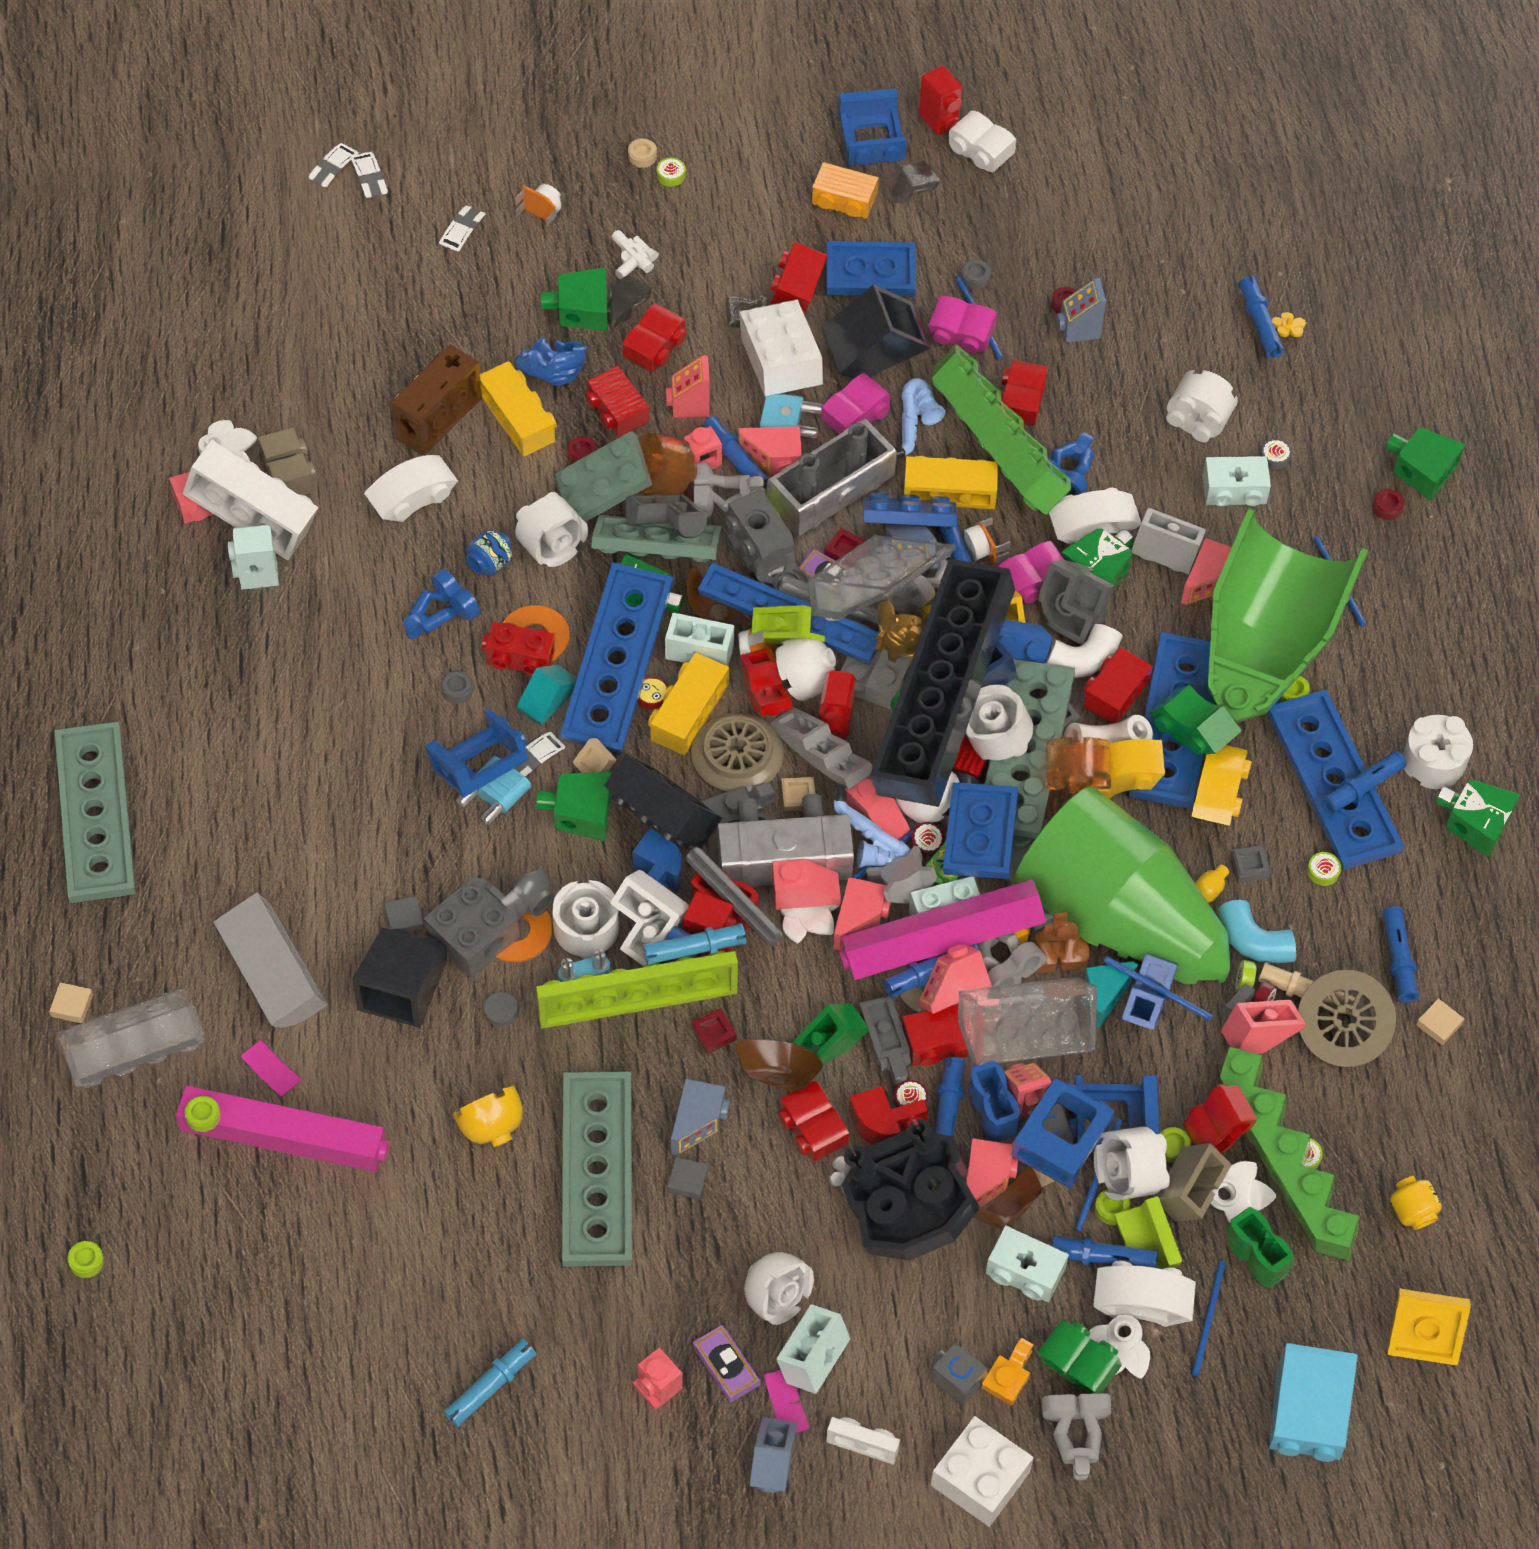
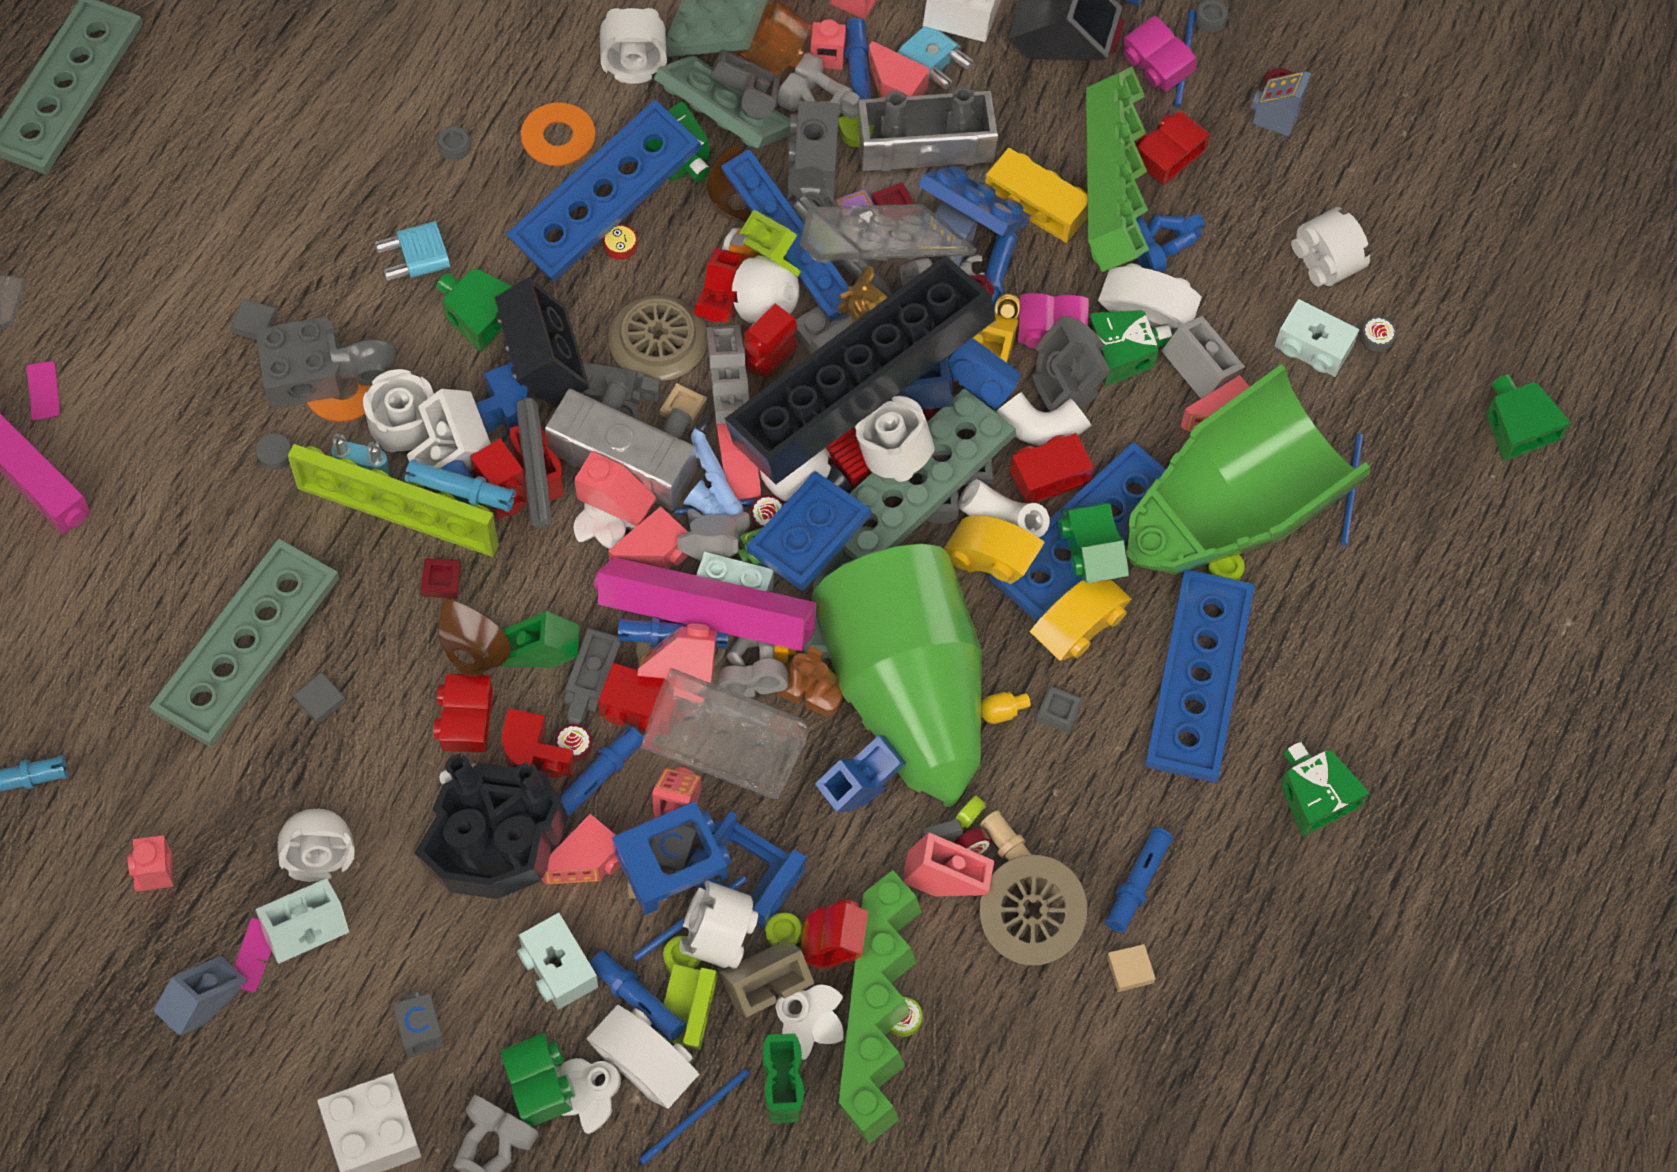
camera: 30 degrees right, 5 degrees up
(270, 962) = (107, 297): light grey brick -> none
(399, 976) = (203, 369): black slope -> none
(447, 590) = (507, 53): blue piece -> none
(458, 775) = (391, 212): blue window -> none
(489, 553) = (567, 37): blue head -> none
(491, 1117) = (184, 541): yellow cylinder -> none
(518, 647) = (530, 137): red brick -> none
(540, 751) = (476, 240): white sticker -> none
(546, 692) = (525, 188): teal slope -> none
(594, 757) = (520, 268): tan plate -> none
(688, 703) = (643, 268): yellow brick -> none
(698, 635) = (691, 216): light aqua brick -> none
(698, 1114) = (366, 646): sand blue slope -> none
(726, 1363) = (225, 887): tile -> none
(851, 1436) = (280, 1018): white plate -> none
(858, 401) = (1007, 76): dark pink brick -> none
(917, 400) = (1065, 104): light blue piece -> none
(981, 544) = (1021, 266): piece -> none
(994, 1102) = (634, 796): blue brick -> none
(1008, 1376) = (464, 1055): light orange plate -> none
(1012, 1201) = (585, 898): reddish brown piece -> none
(1078, 764) = (944, 519): clear orange brick -> none
(1110, 987) = (826, 746): teal slope -> none
(1158, 988) = (870, 775): blue axle -> none
(1251, 939) = (1001, 782): medium azure cylinder -> none
(1256, 306) = (1462, 185): blue pin -> none
(1288, 324) = (1484, 218): yellow plant -> none
(1324, 868) = (1127, 755): tile -> none
(1354, 788) = (1208, 694): blue pin -> none
(1388, 504) = (1456, 441): dark red tile -> none
(1416, 1203) = (970, 1128): yellow head -> none
(1437, 750) = (1339, 701): white brick -> none

